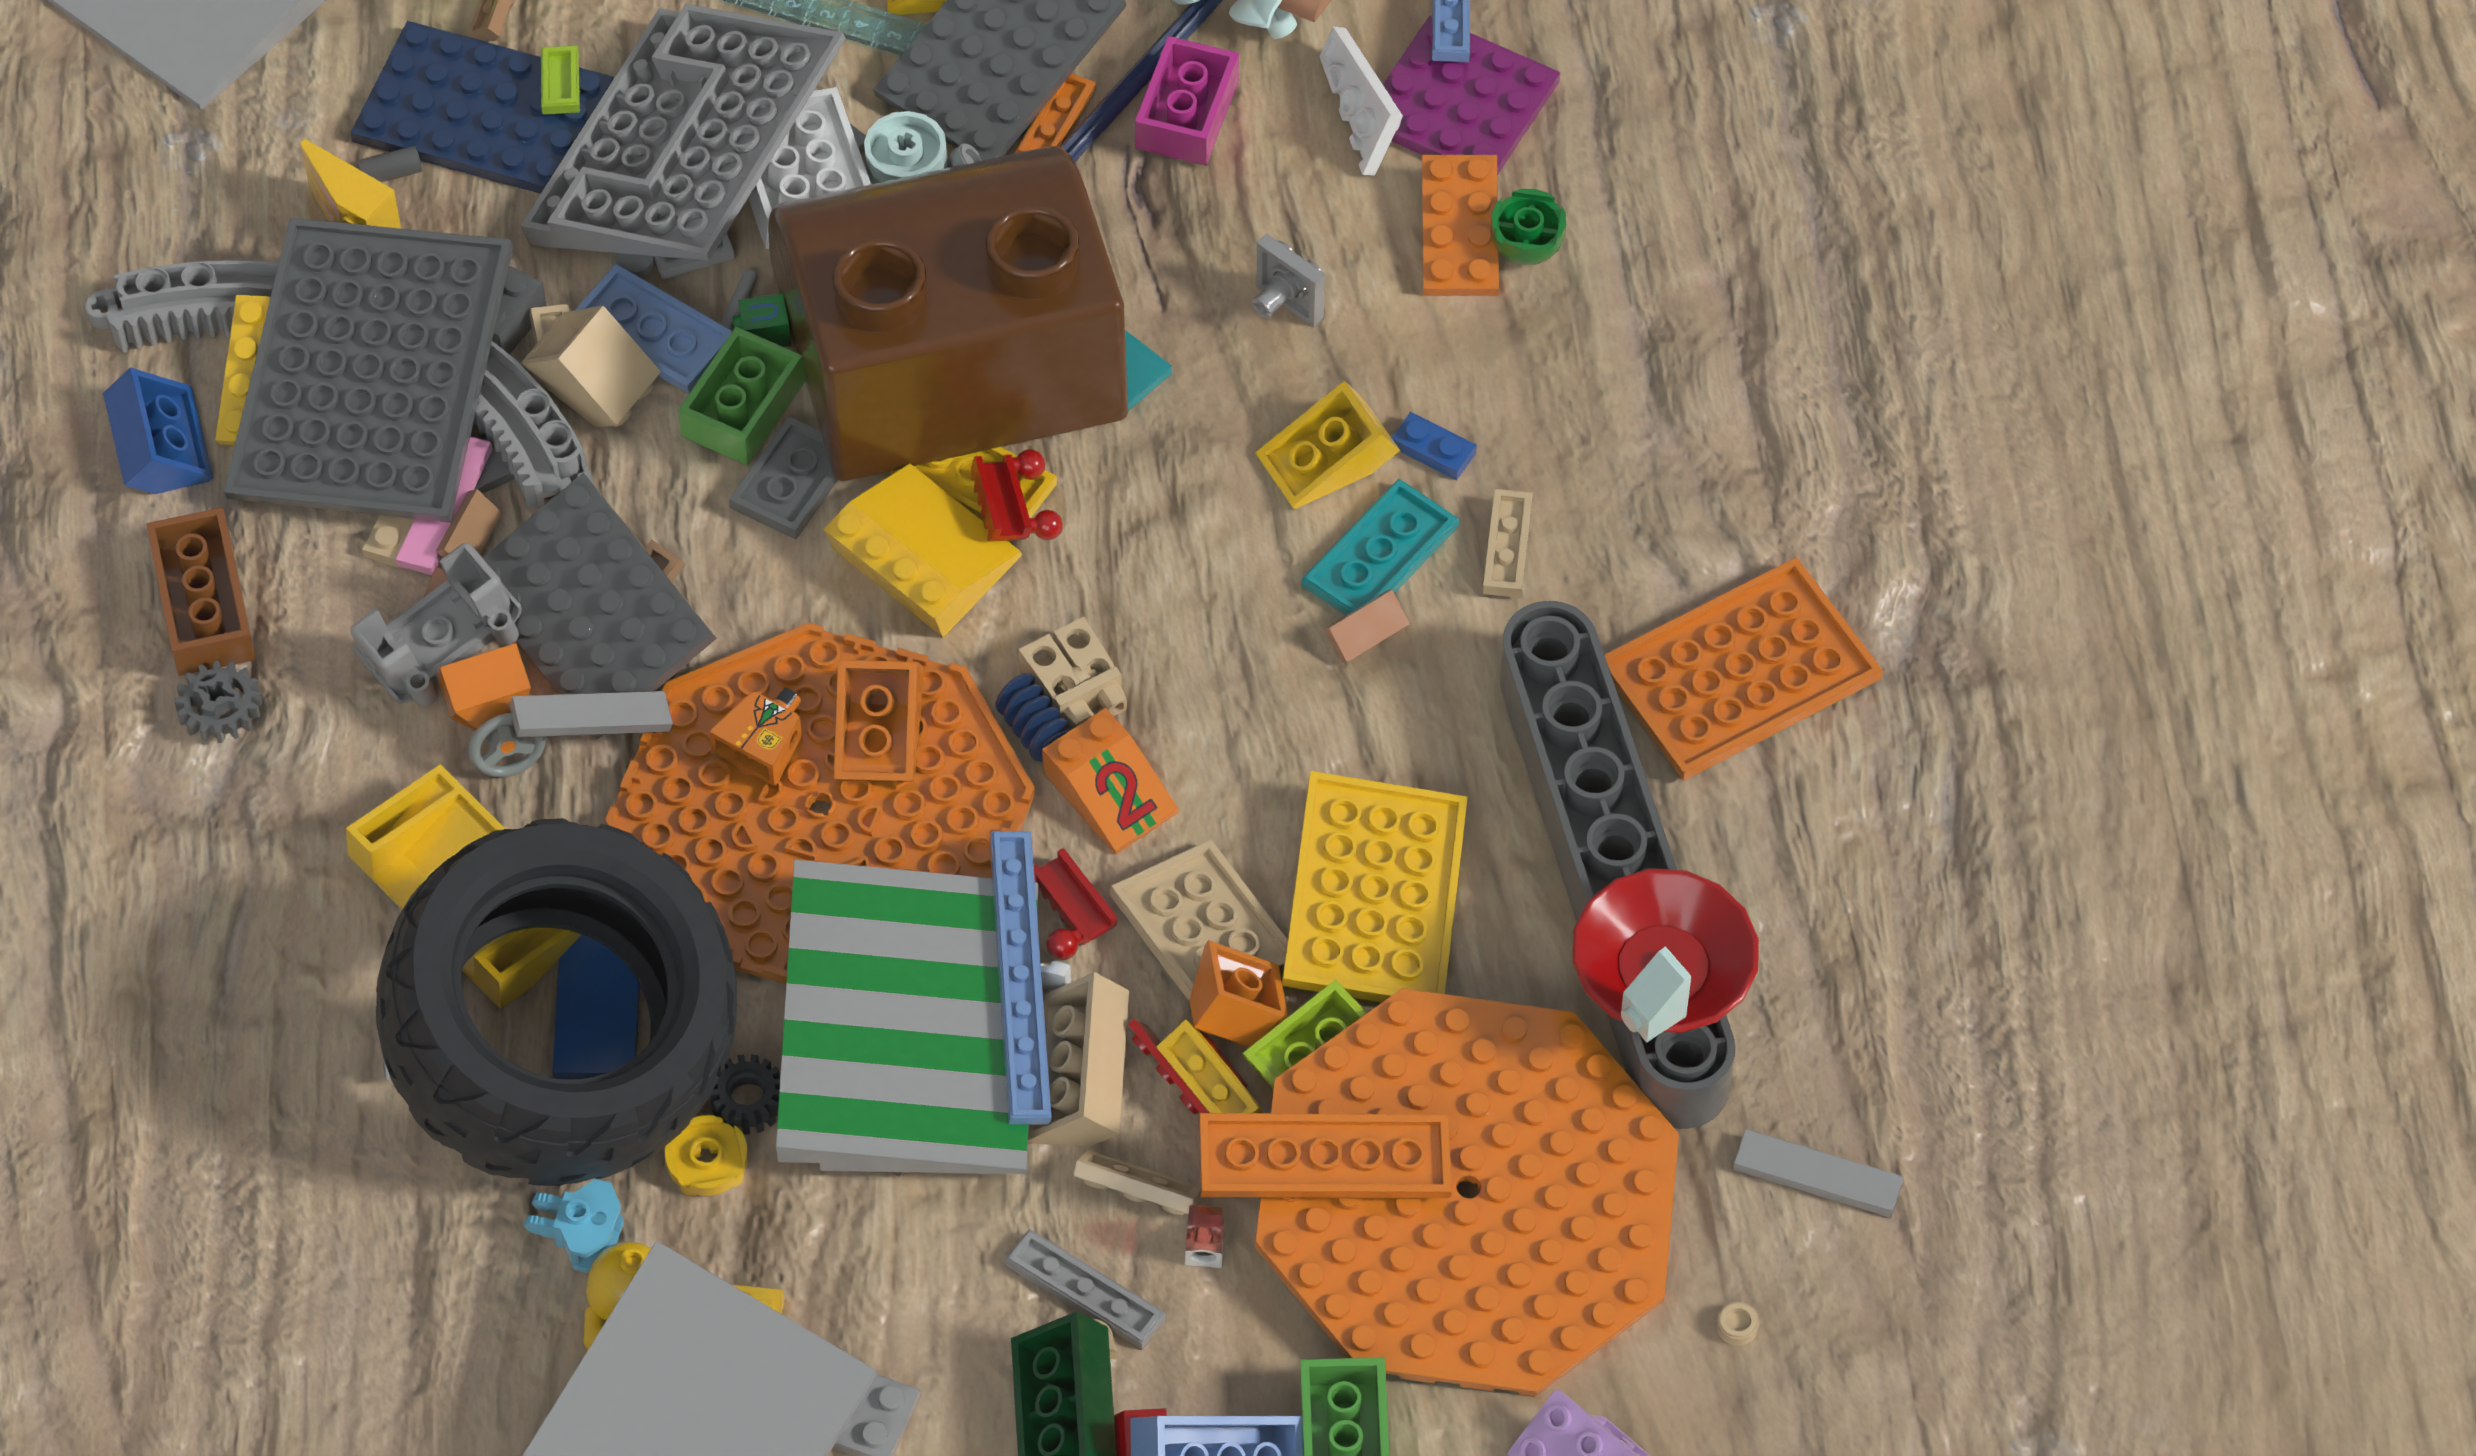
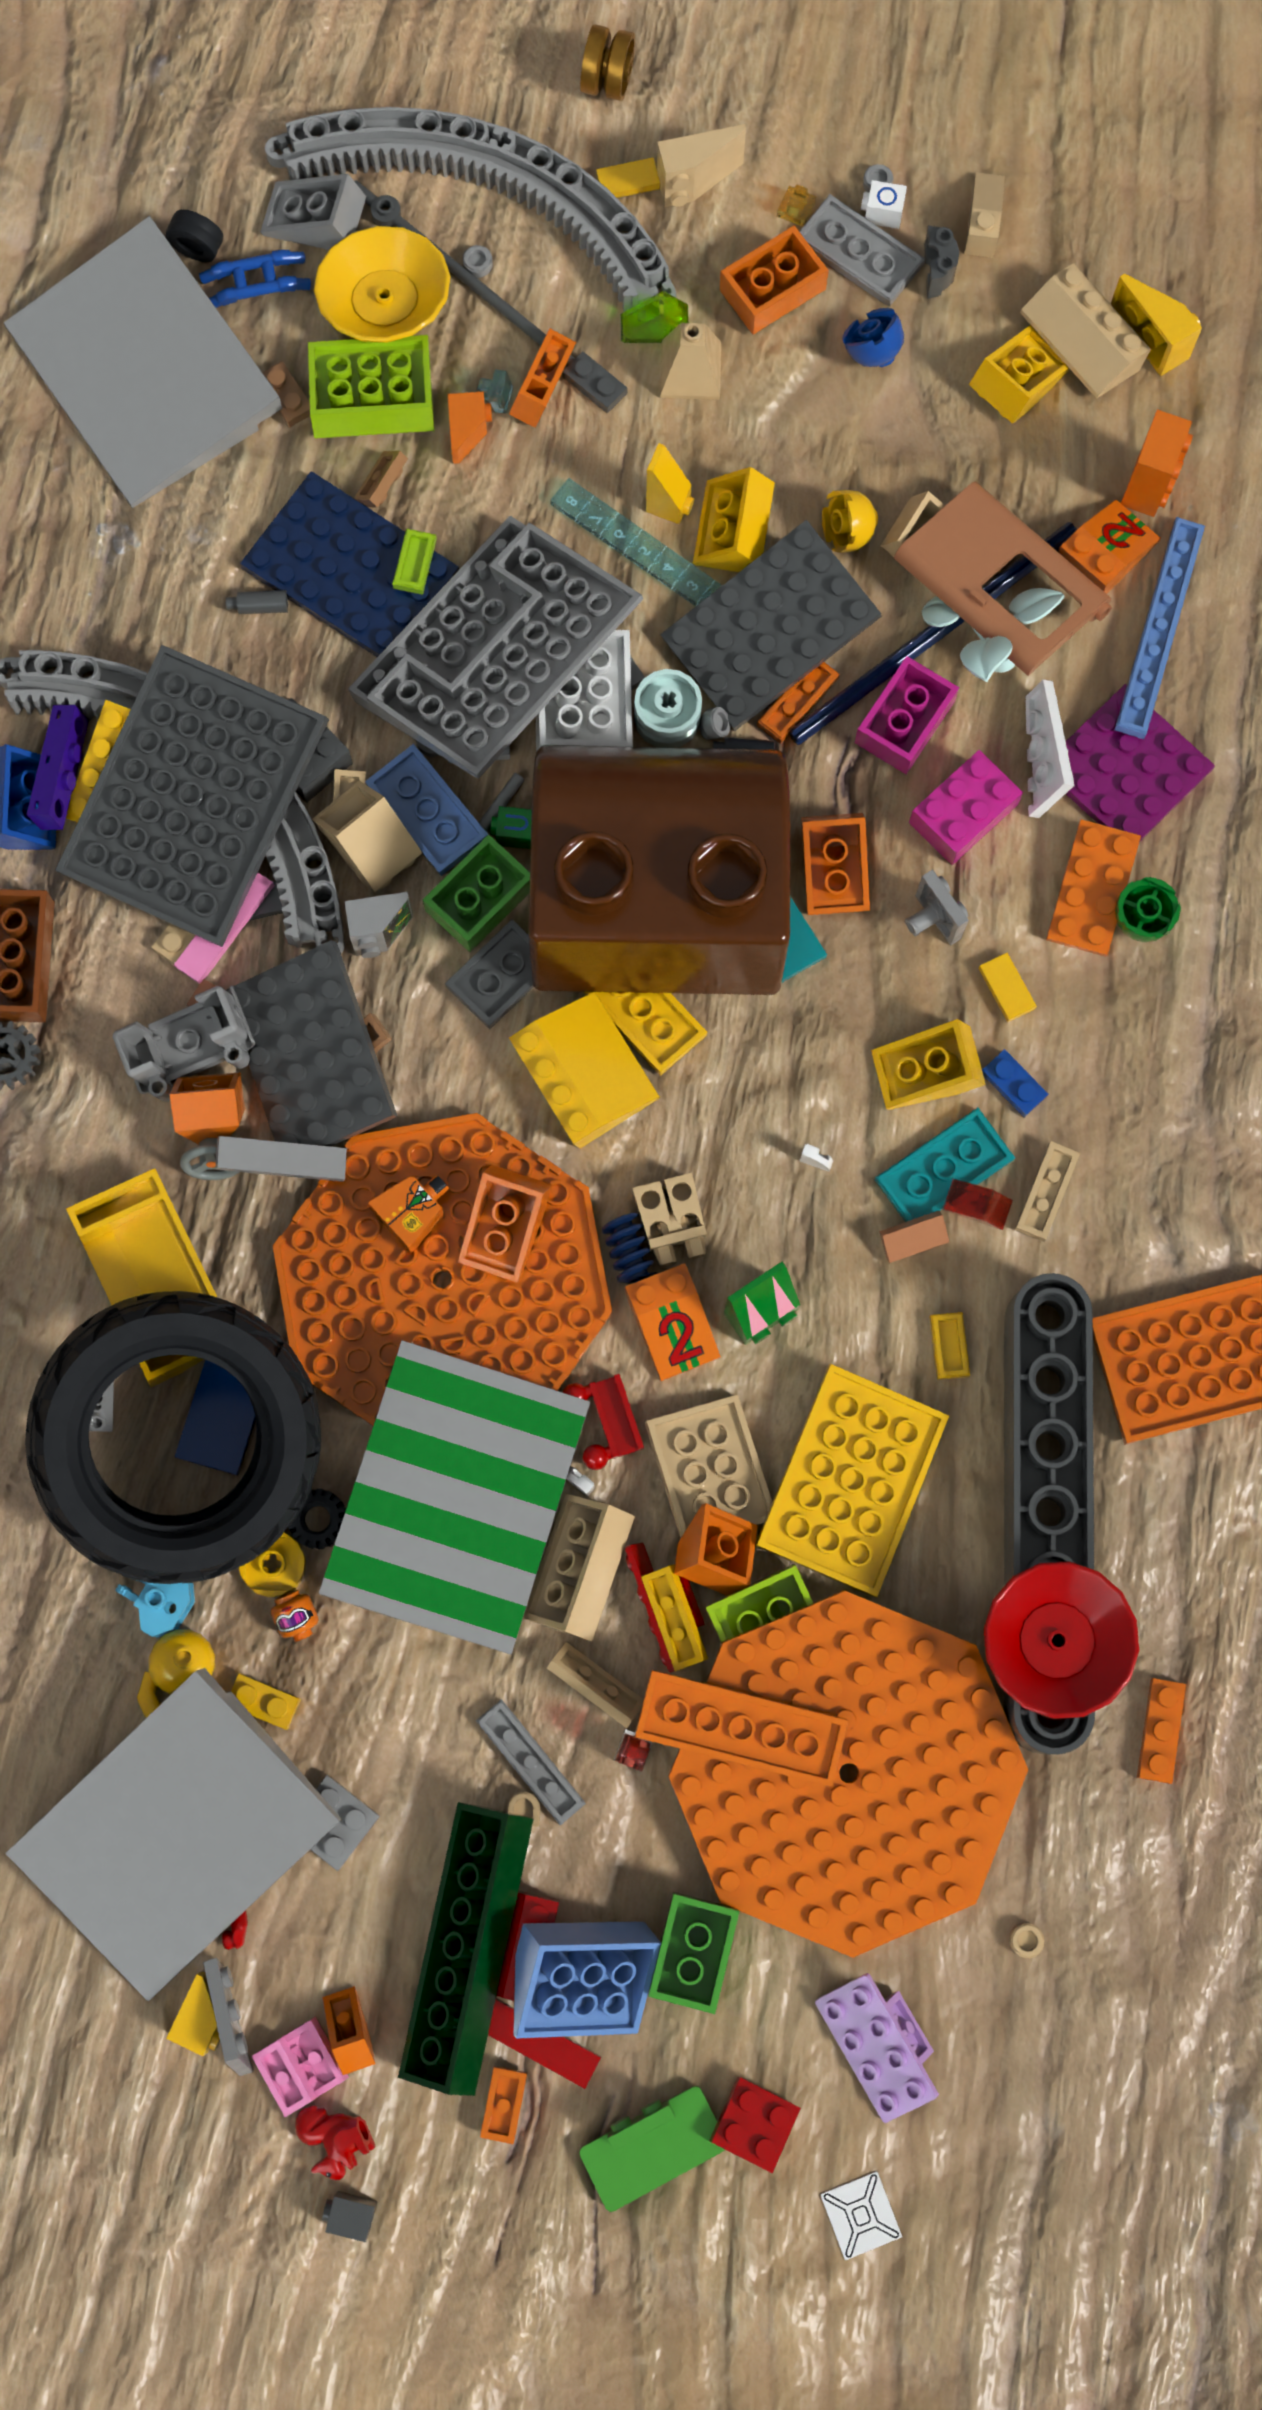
camera: 15 degrees right, 20 degrees up
(198, 394) = (58, 777): none -> dark purple piece
(347, 192) = (223, 639): yellow slope -> none
(471, 524) = (236, 955): medium nougat tile -> none
(629, 450) = (377, 922): none -> light grey slope
(750, 1200) = (294, 1615): none -> orange head
(1004, 502) = (657, 1045): red gear -> none
(1020, 978) = (551, 1486): medium blue tile -> none
(1153, 269) = (835, 863): none -> orange slope
(1209, 725) = (762, 1305): none -> green slope
(1224, 576) = (812, 1157): none -> white tile
(1285, 178) = (965, 807): none -> dark pink brick
(1393, 351) = (1007, 987): none -> yellow tile
(1431, 572) = (978, 1203): none -> clear red slope
(1445, 731) = (949, 1345): none -> yellow tile
(1657, 996) = (1038, 1697): light aqua slope -> none
(1818, 1173) = (1129, 1827): light grey tile -> none
(1823, 1064) = (1161, 1731): none -> orange plate

